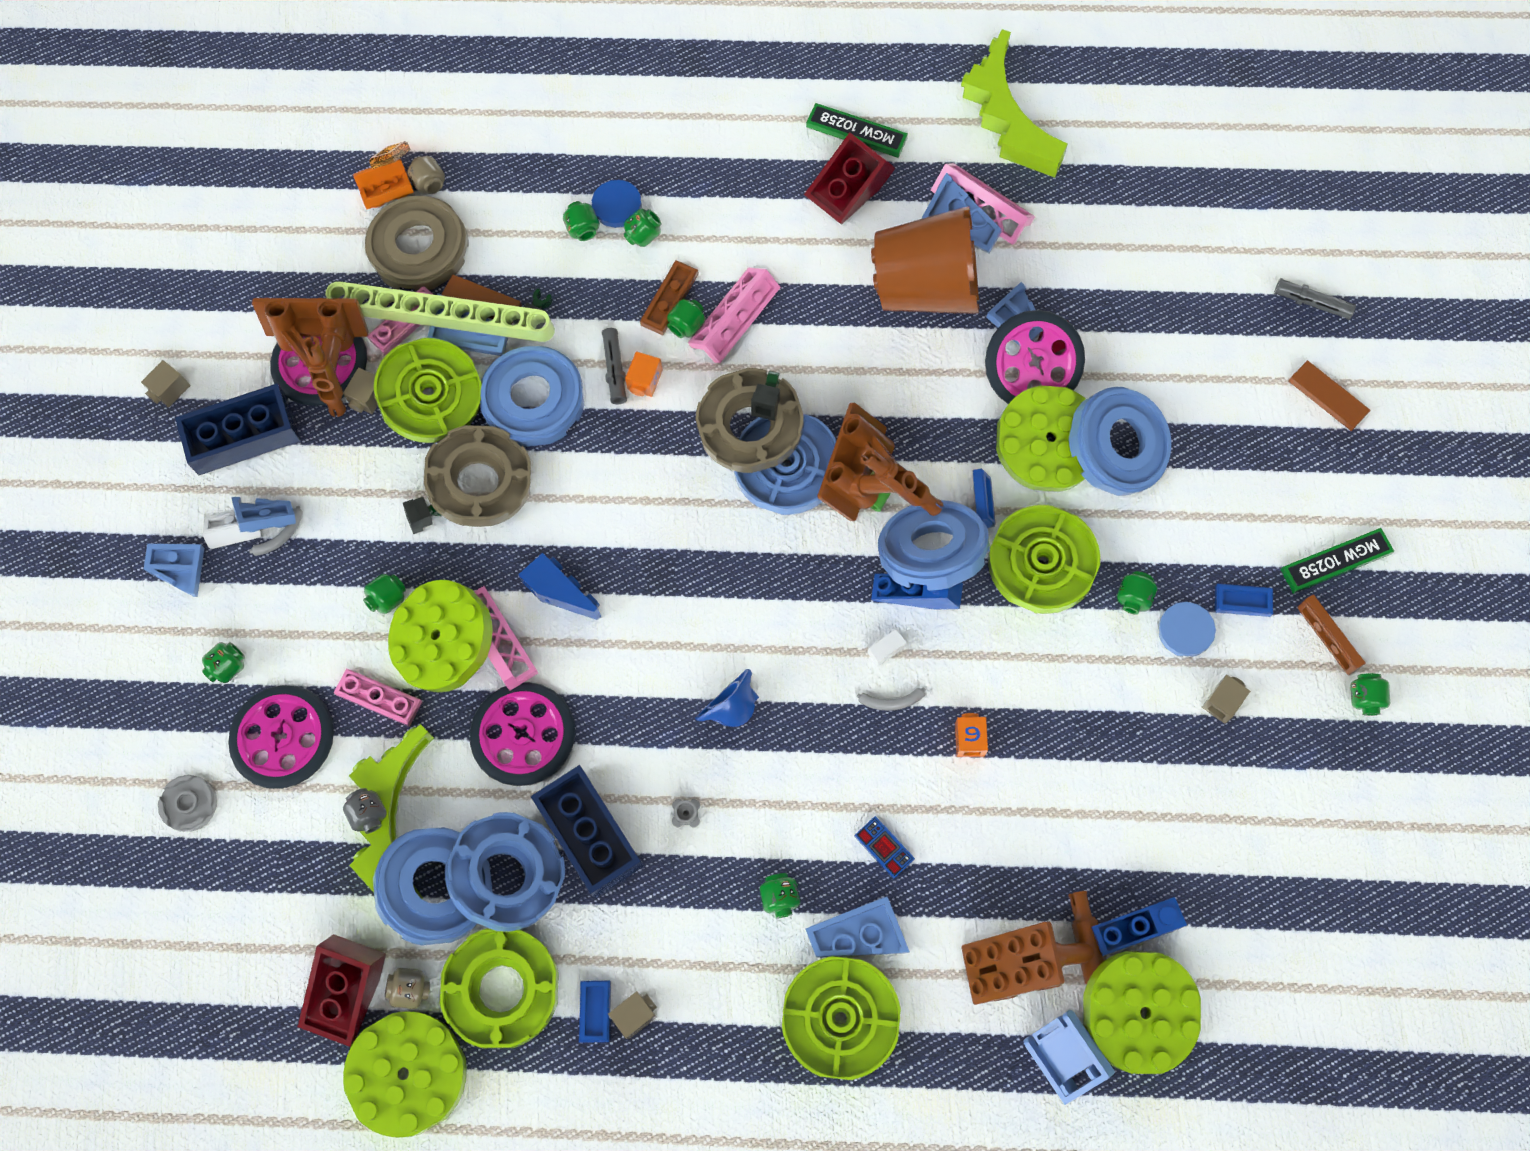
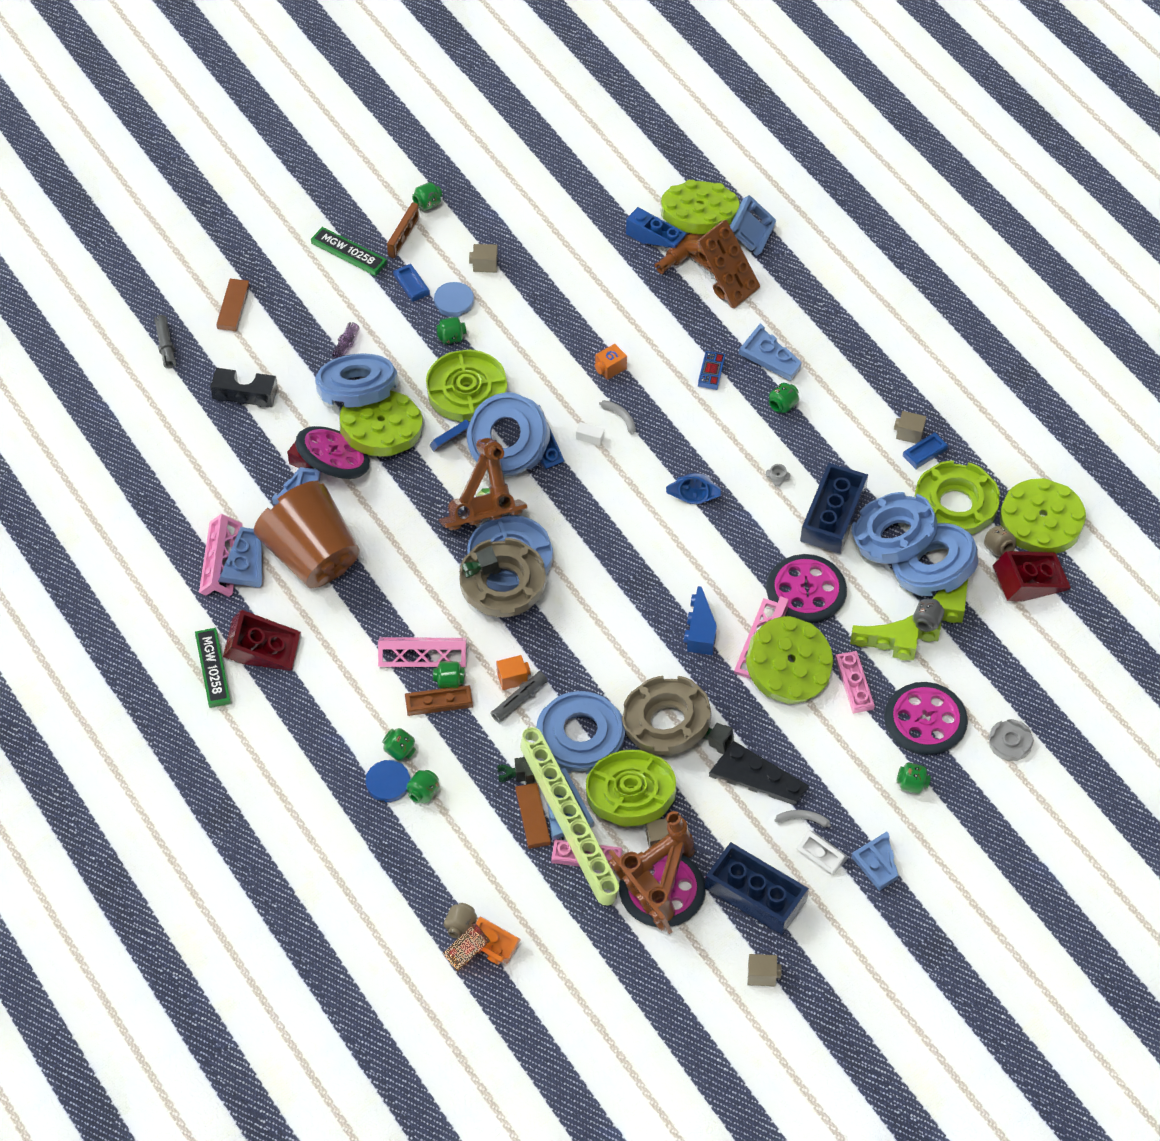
camera: 130 degrees left, 15 degrees down
(262, 514) = (801, 827): medium blue wing -> none
(362, 523) = (750, 770): none -> black wing
(384, 593) = (789, 719): green head -> none
(426, 268) = (518, 914): dark tan piece -> none
(871, 1012) = (834, 320): lime piece -> none
(1020, 138) = (134, 585): lime arch -> none
(1196, 476) = (346, 340): none -> clear purple pin
(1206, 321) = (258, 392): none -> black arch

